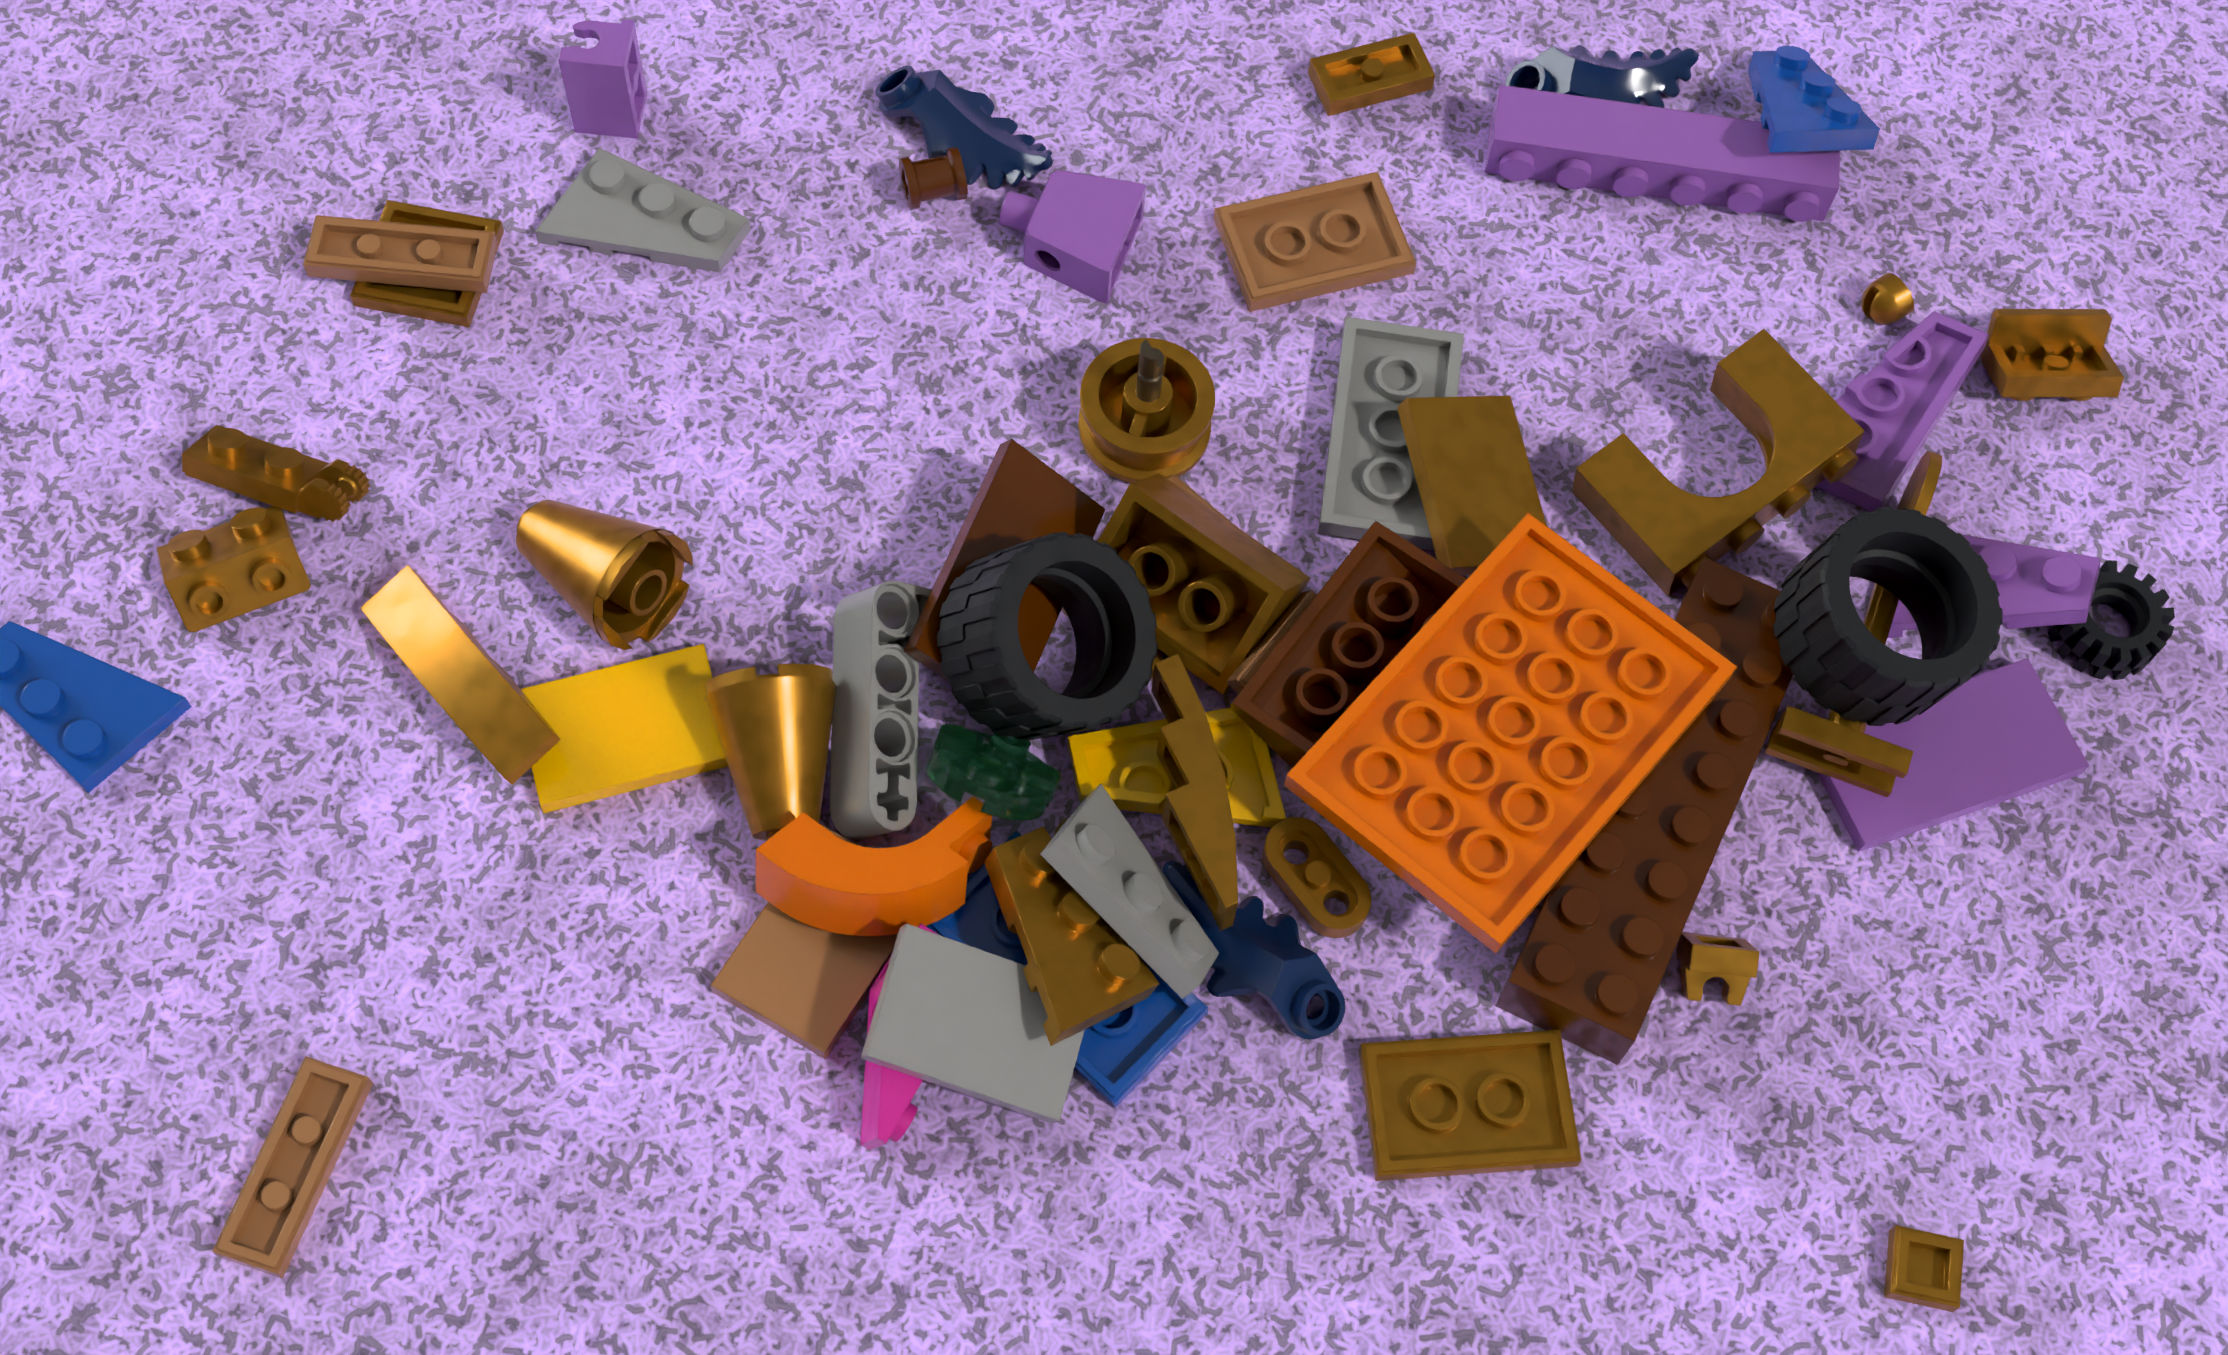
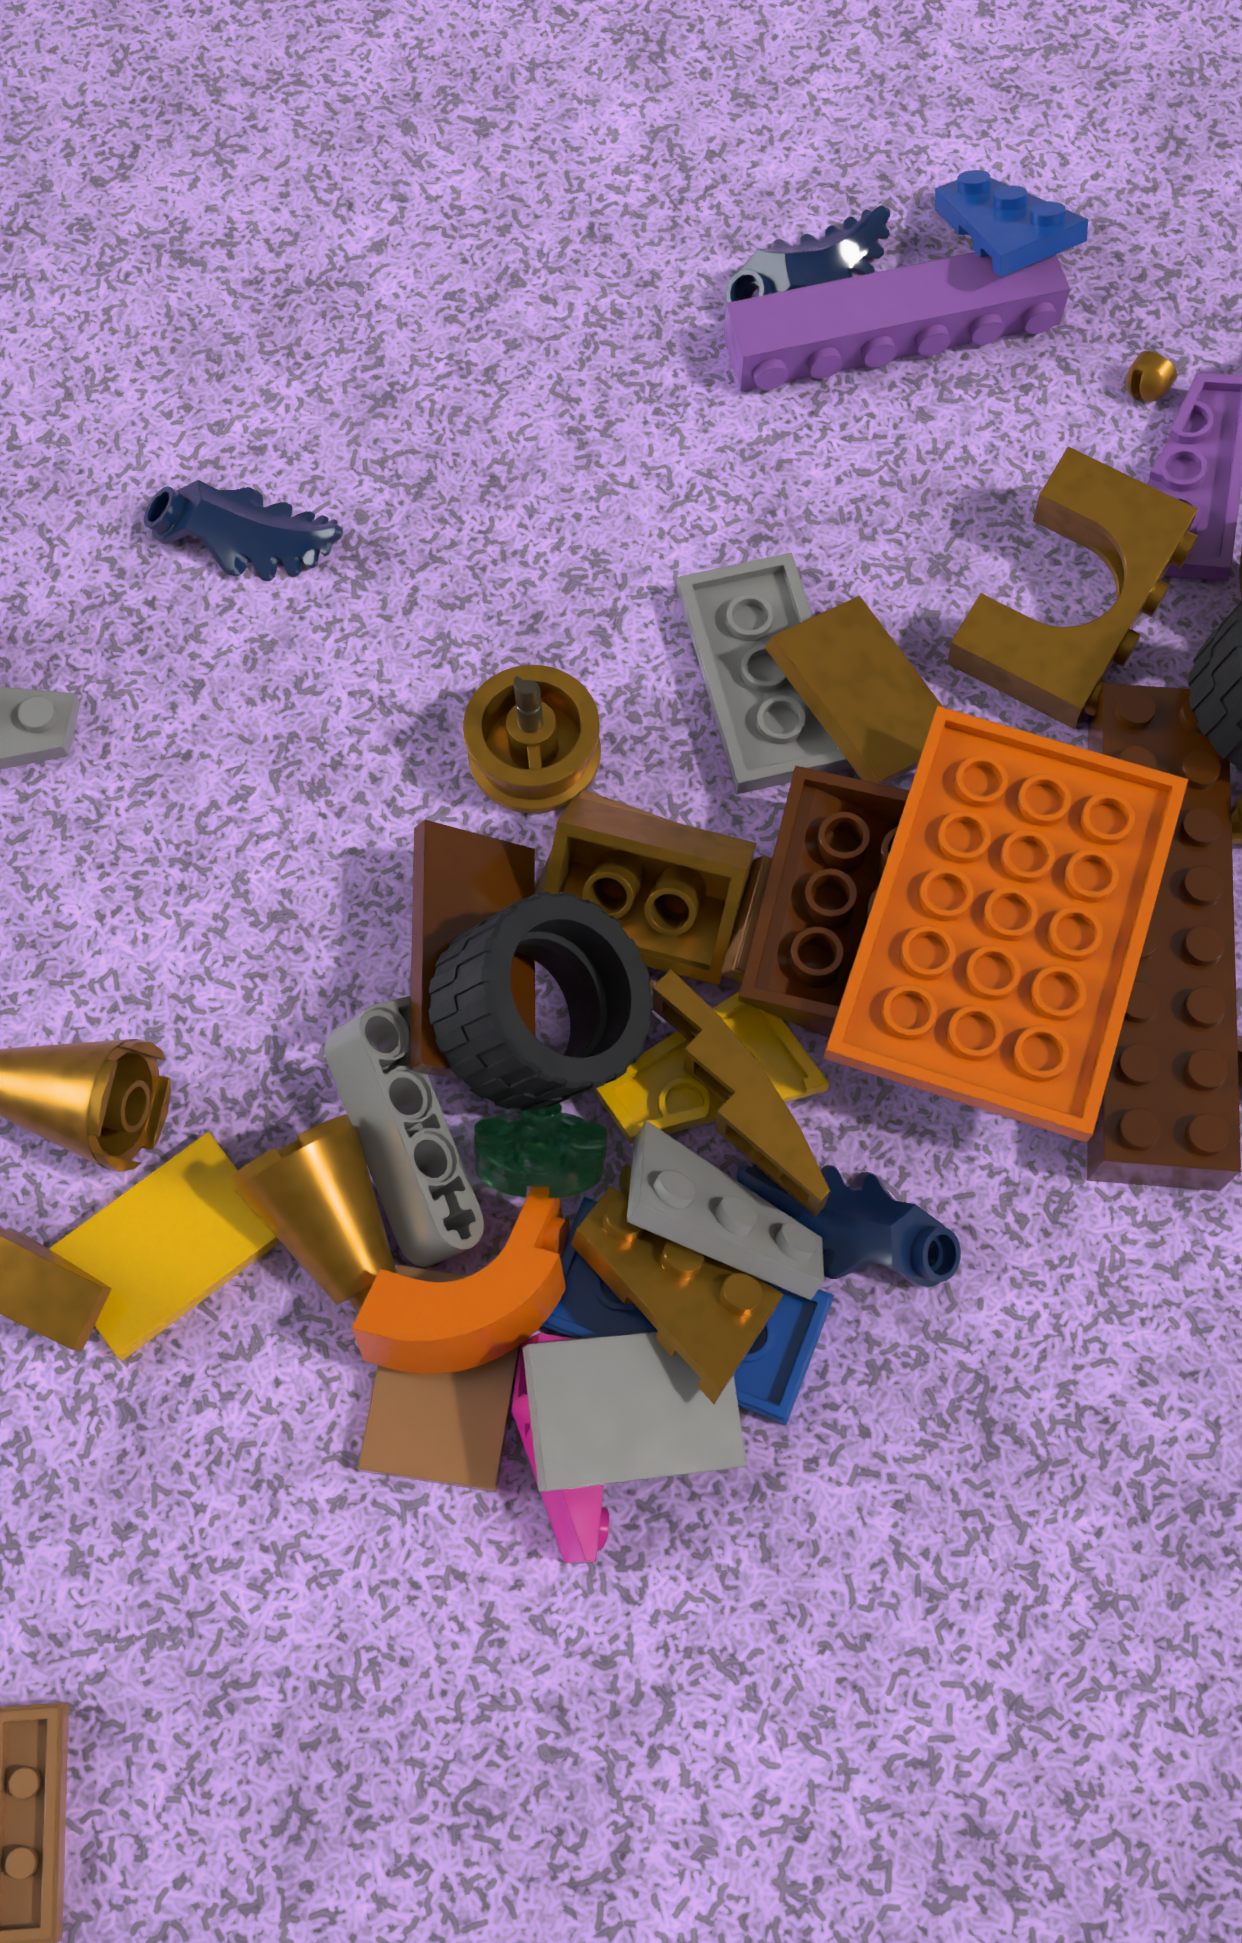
camera: 15 degrees left, 5 degrees up
(933, 178) = (235, 587): reddish brown bush -> none
(1078, 229) = (393, 586): medium lavender torso -> none
(1314, 241) = (614, 515): medium nougat tile -> none
(1319, 878) = (881, 1123): pearl gold plate -> none
(1371, 74) = (600, 336): pearl gold plate -> none
(1468, 1105) = (1105, 1287): pearl gold tile -> none

